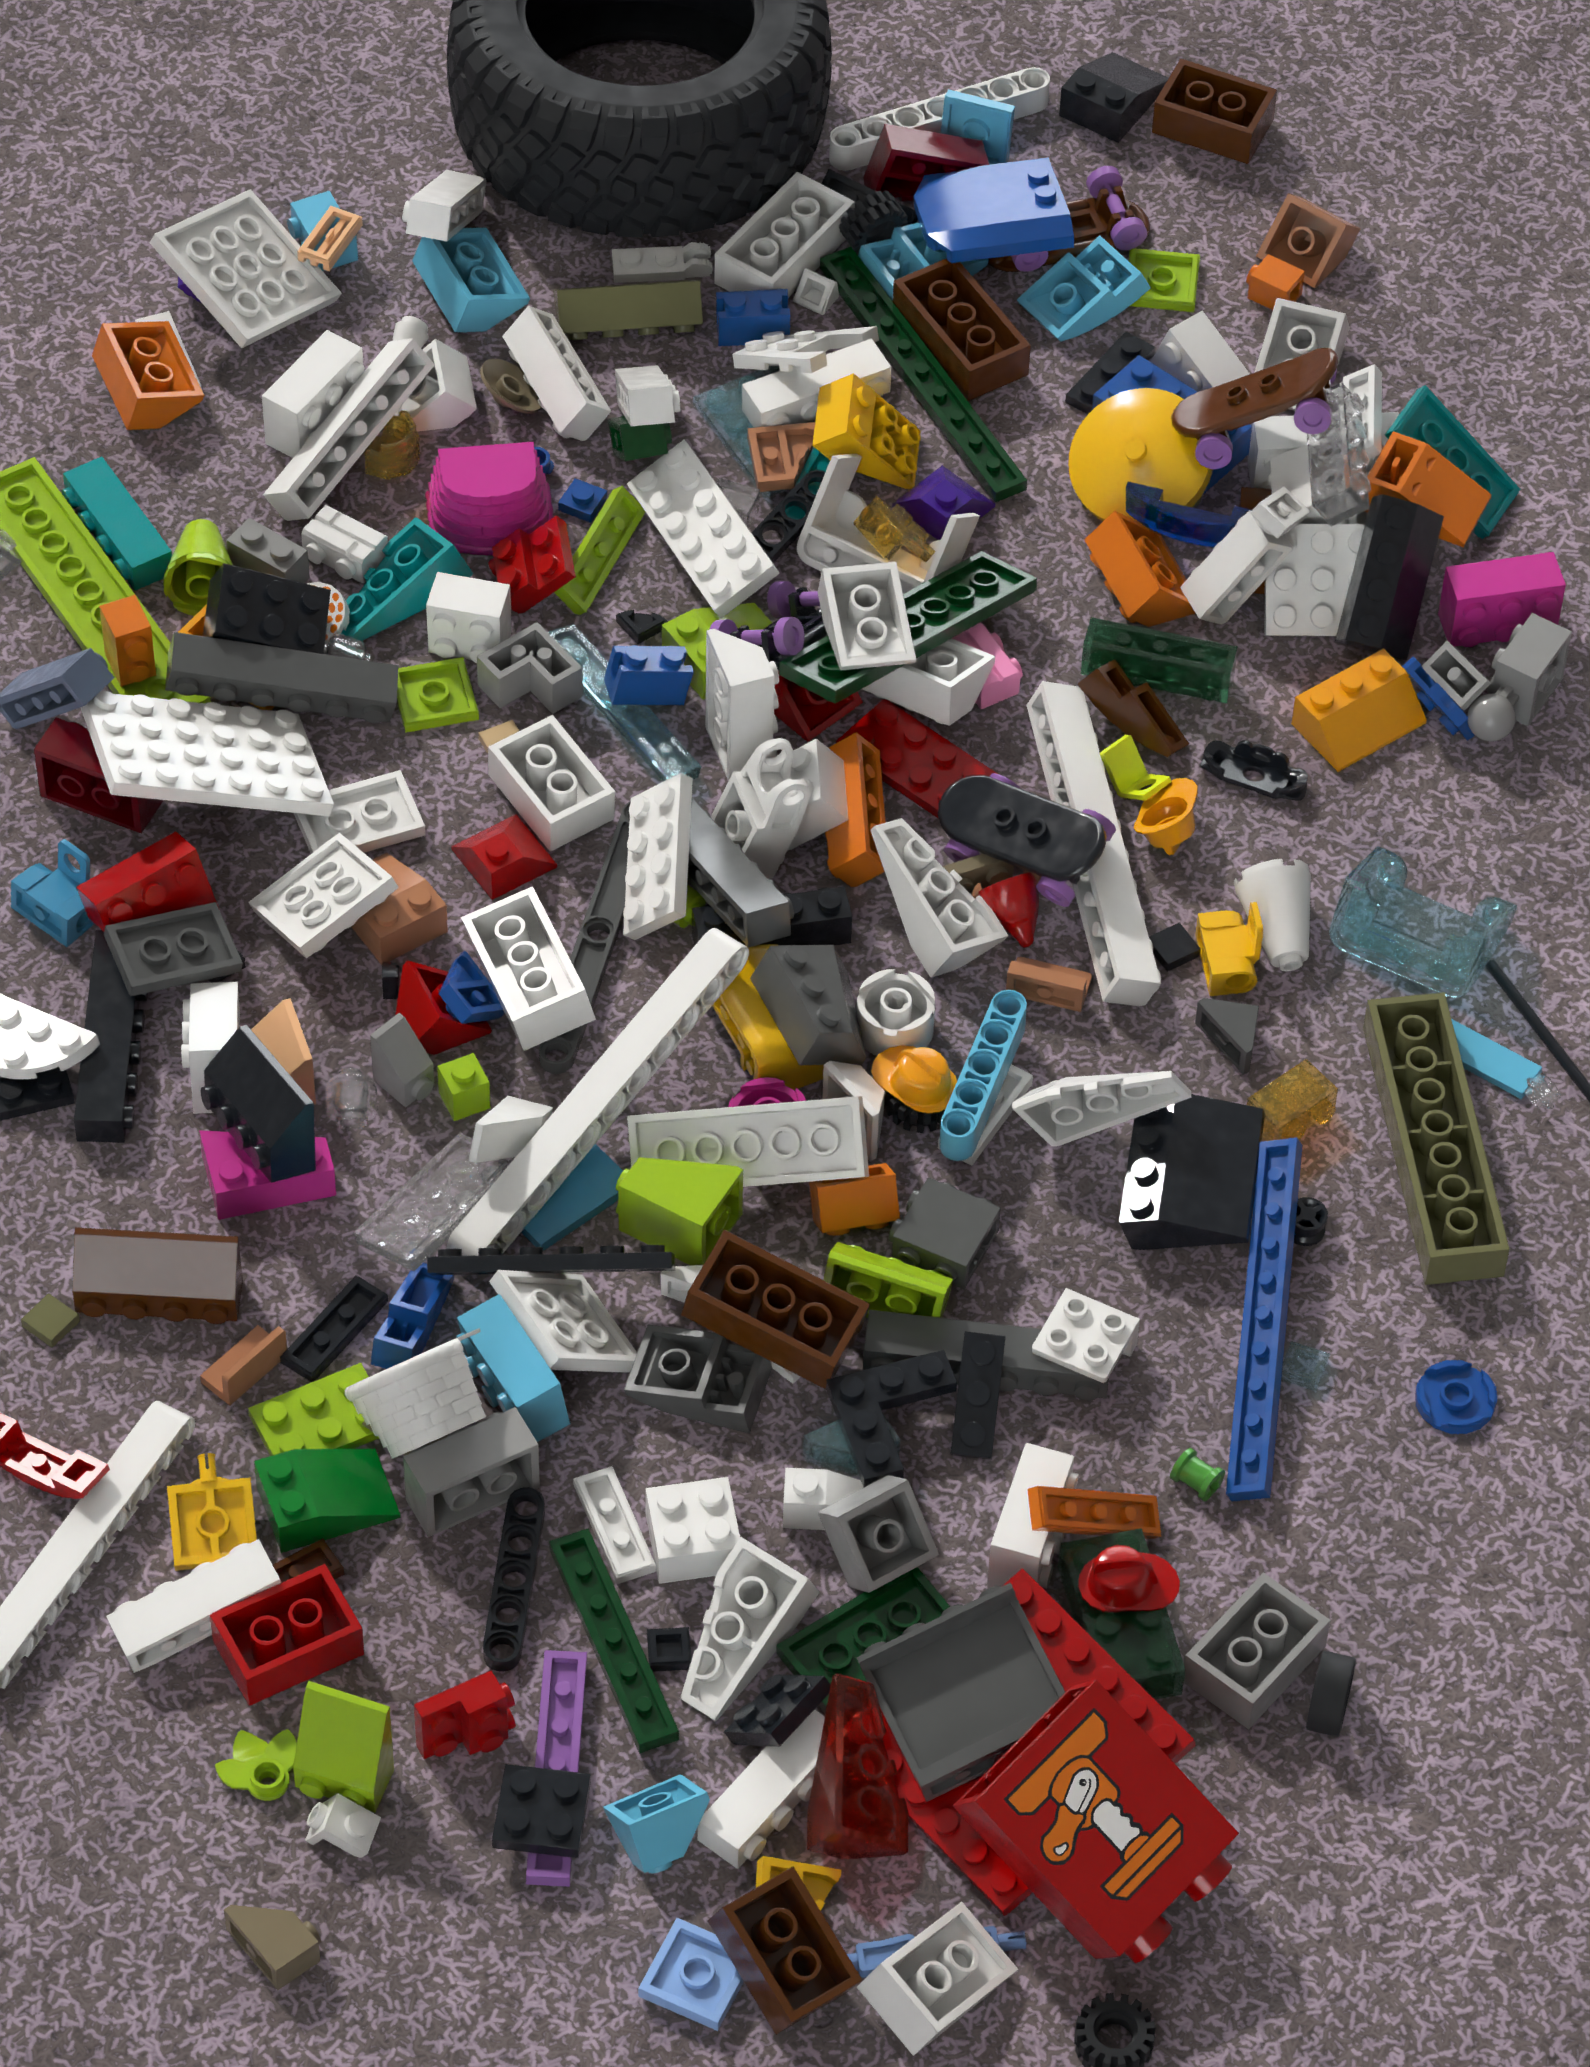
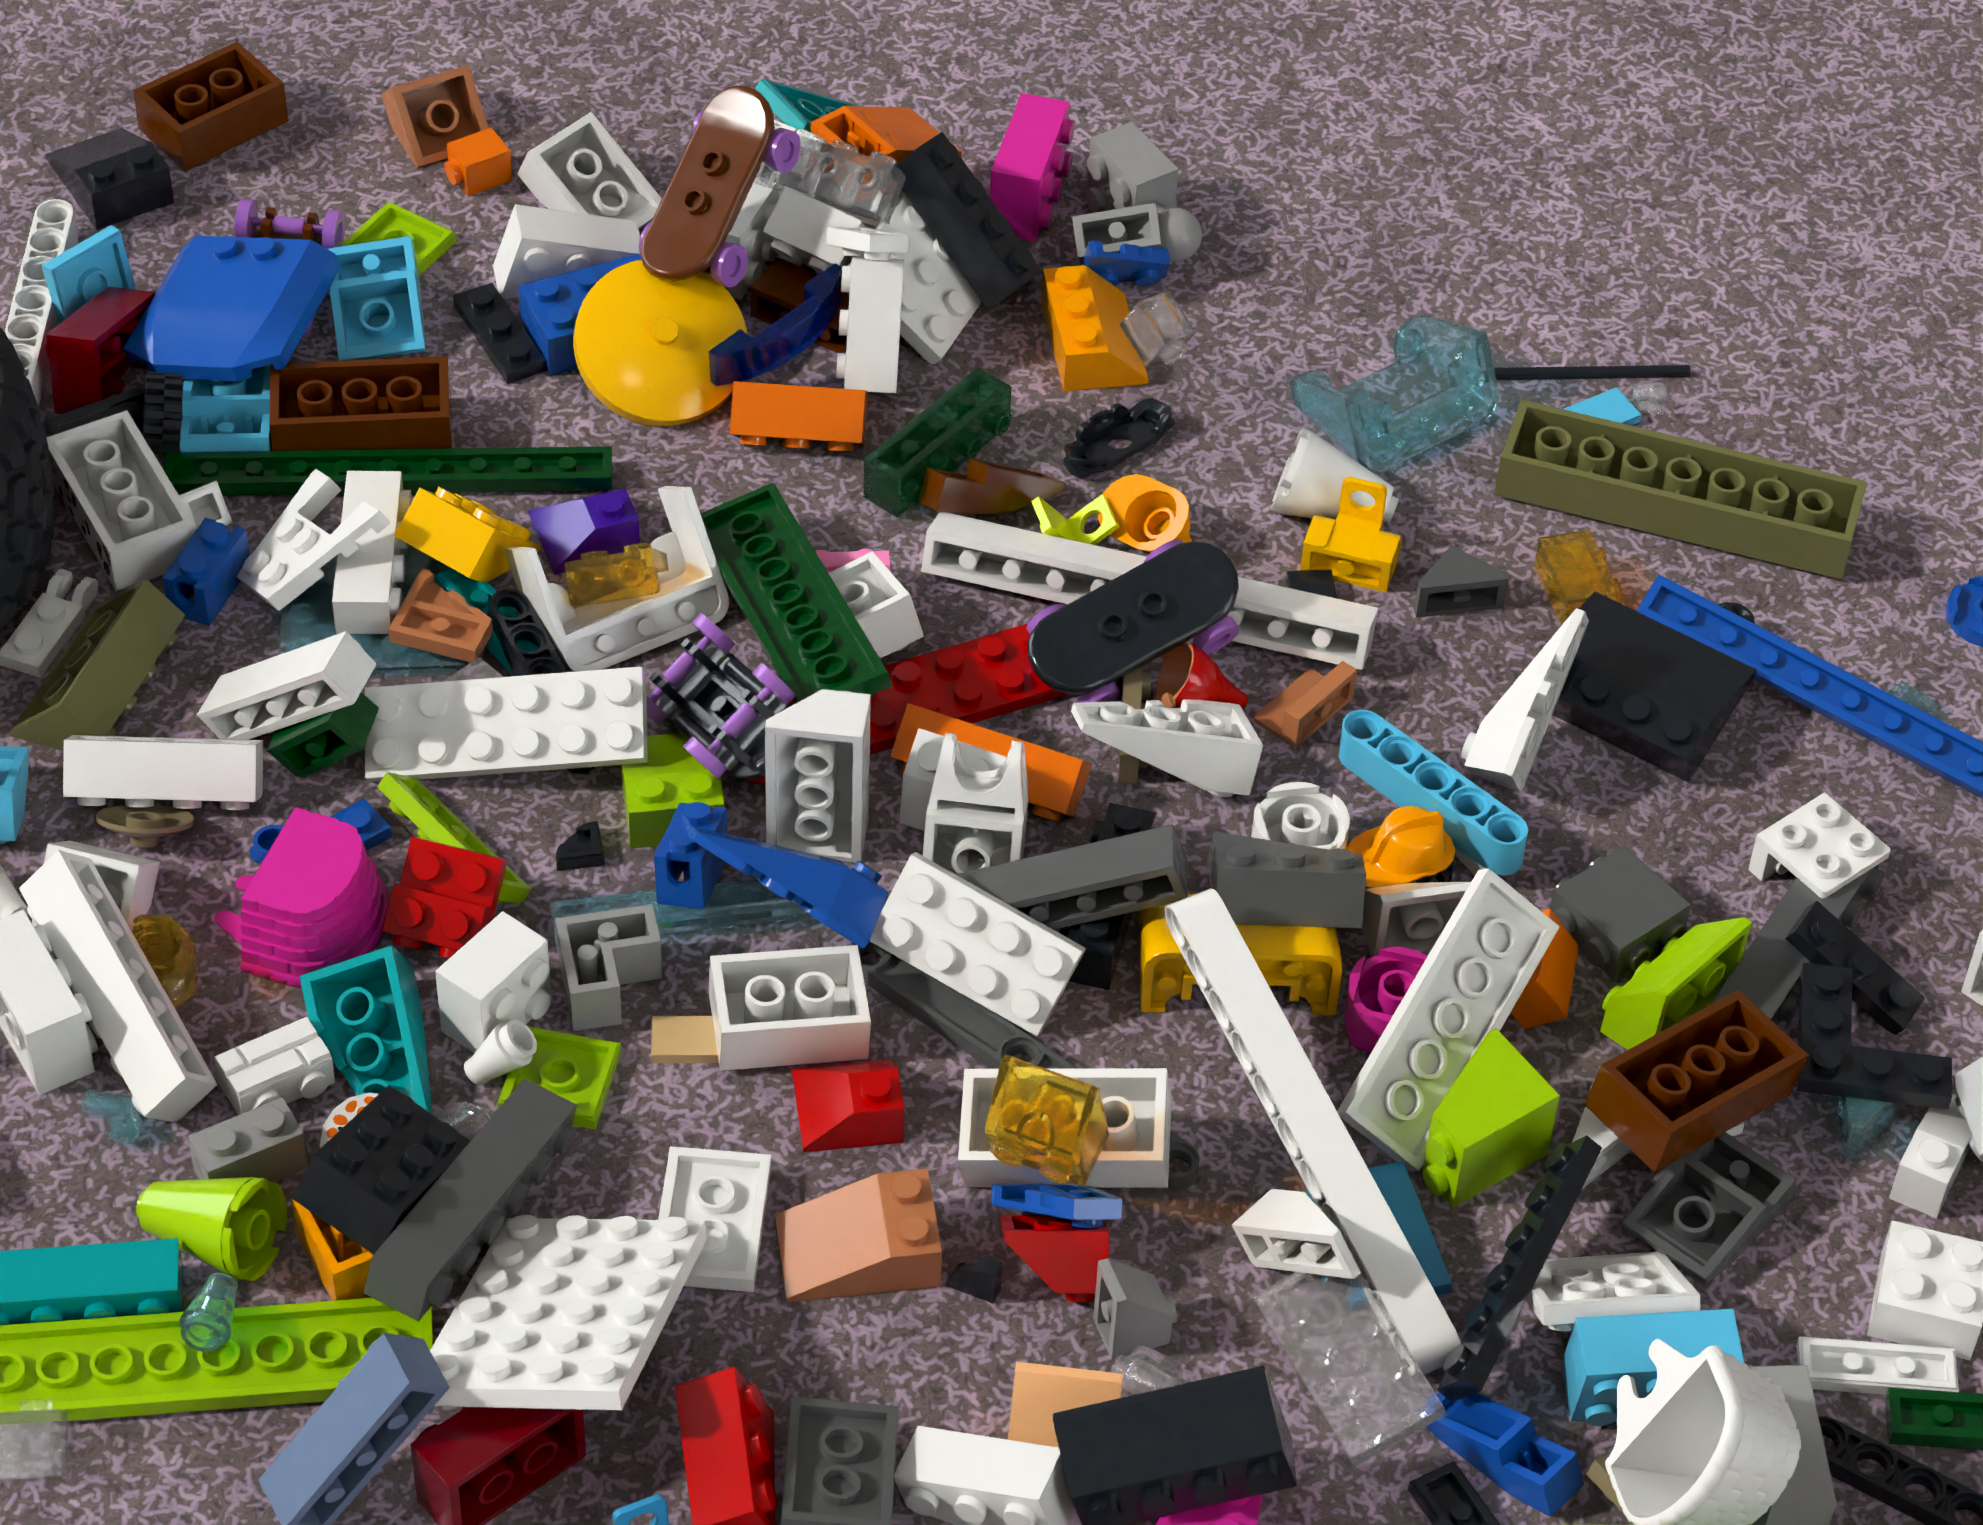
camera: 65 degrees left, 5 degrees down
(118, 587) = (210, 1315): none -> clear light blue cone
(128, 640) = (320, 1326): orange brick -> none
(270, 472) = (119, 1111): none -> clear light blue arm
(323, 895) = (837, 1286): white plate -> none
(423, 649) = (503, 1051): none -> white cone
(463, 1087) = (1191, 1264): lime brick -> none
(490, 938) = (1046, 1122): none -> clear yellow slope
(644, 736) = (823, 886): none -> blue wedge
(866, 616) = (789, 612): white slope -> none
(1380, 748) = (1158, 329): none -> clear brick

